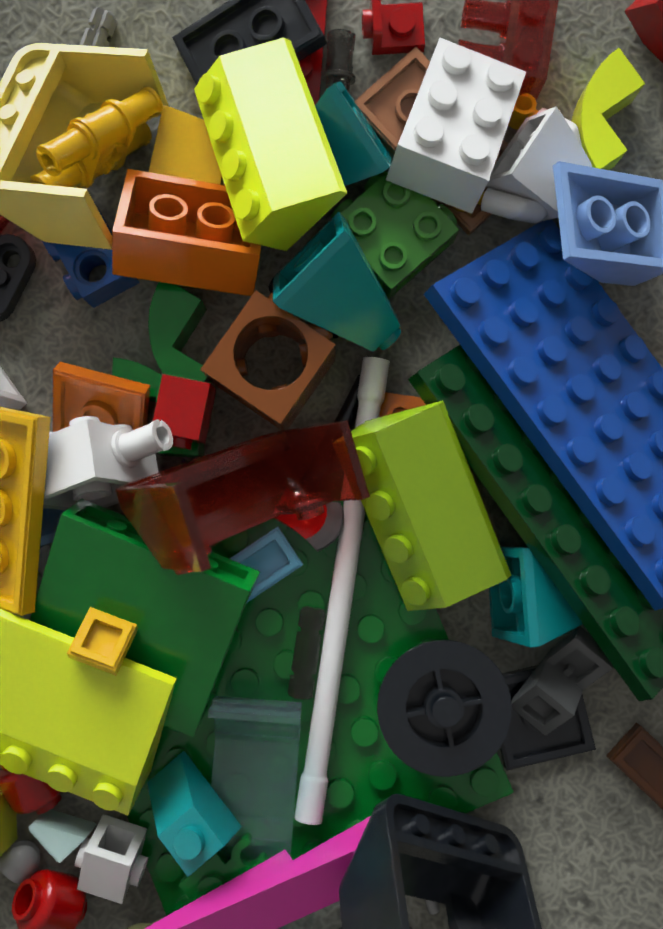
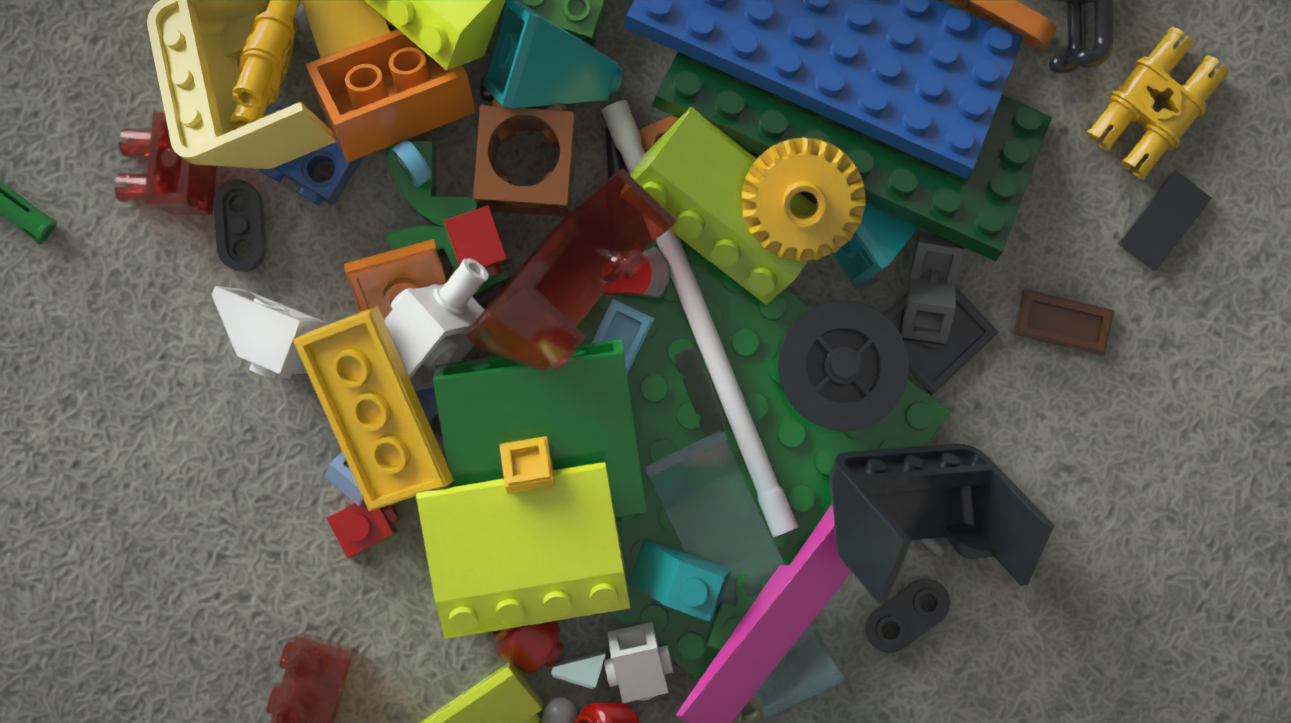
camera: 30 degrees left, 0 degrees up
(168, 307) = (412, 163): none -> medium azure tile
(496, 512) = (795, 168): none -> yellow gear

